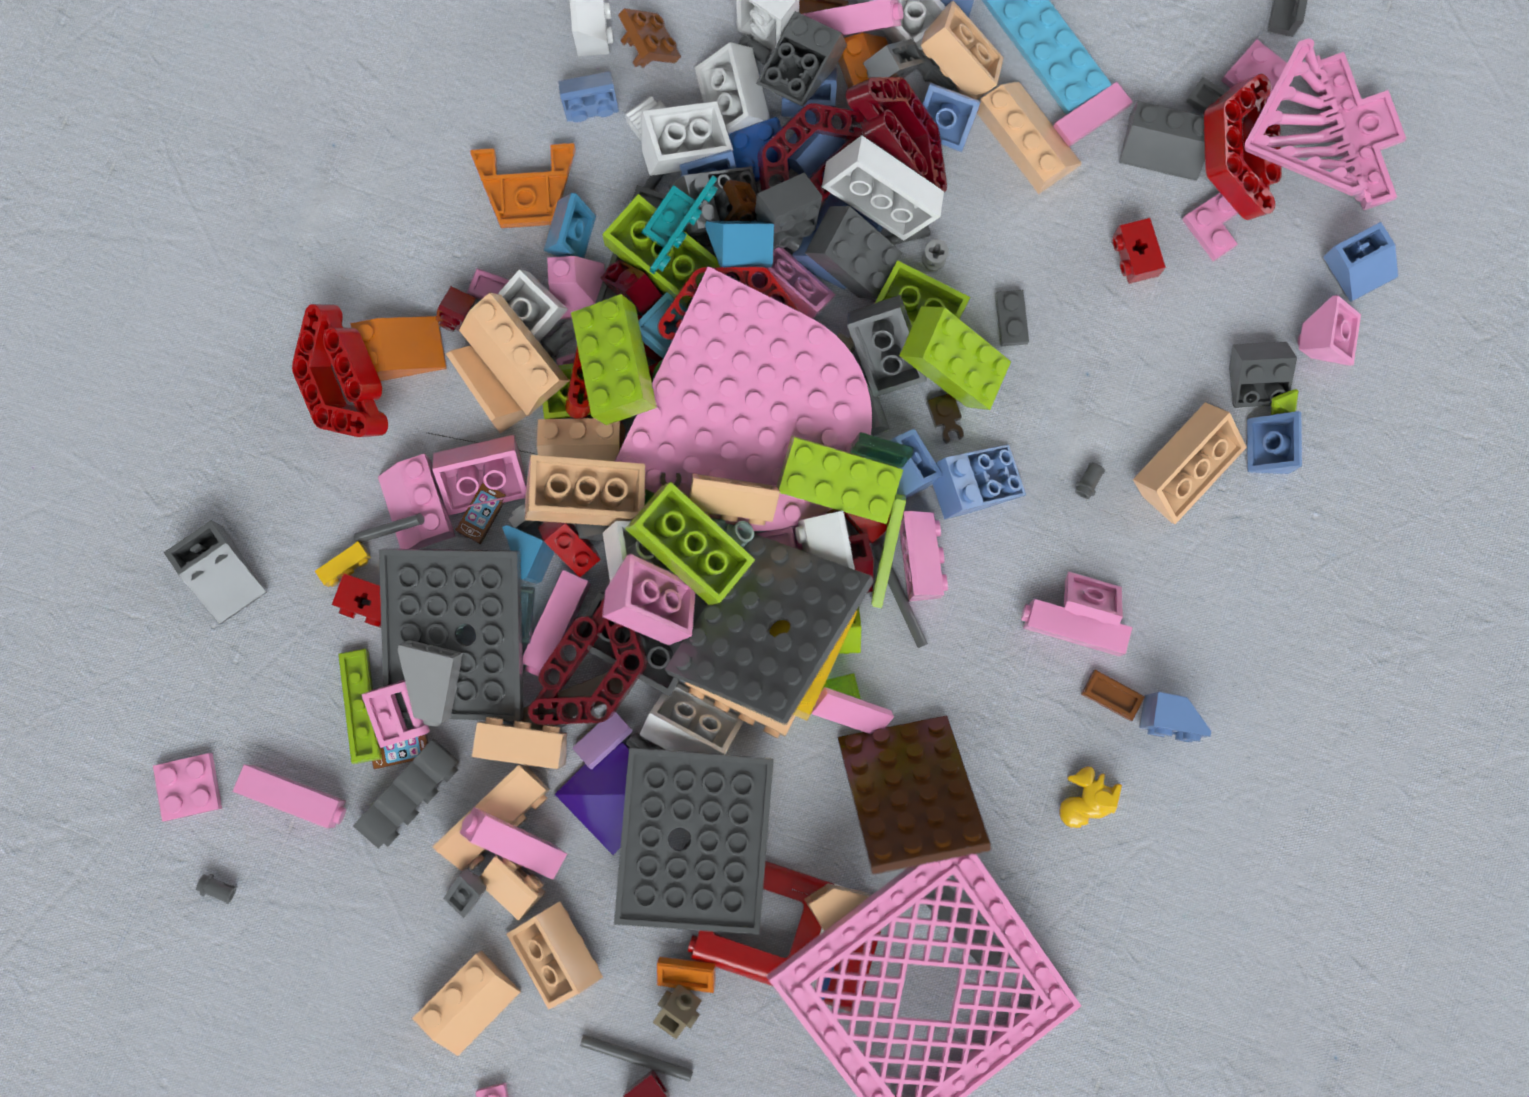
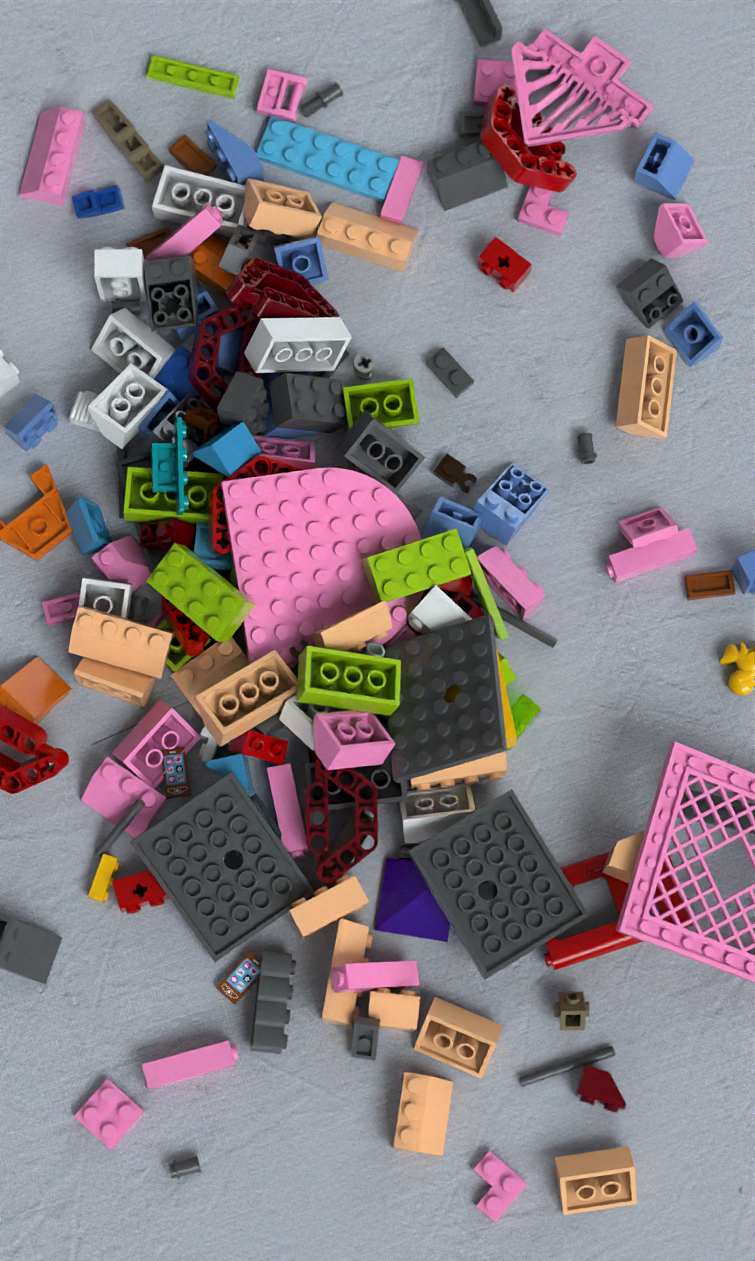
camera: 35 degrees left, 5 degrees down
(355, 681) = (191, 967): lime tile -> none
(387, 716) = (219, 958): bright pink plate -> none
(430, 680) = (233, 907): light grey slope -> none
(454, 309) = (50, 641): dark red slope -> none
(602, 740) = (381, 867): lavender tile -> none
(649, 37) = (45, 350): dark orange plate -> none
(687, 973) = (562, 980): orange tile -> none
(851, 711) = (542, 720): bright pink tile -> none
(881, 449) = (430, 525): clear green tile -> none
(912, 795) = (622, 743): reddish brown plate -> none
(955, 357) = (434, 427): lime brick -> none
(1285, 402) = (680, 301): lime slope -> none

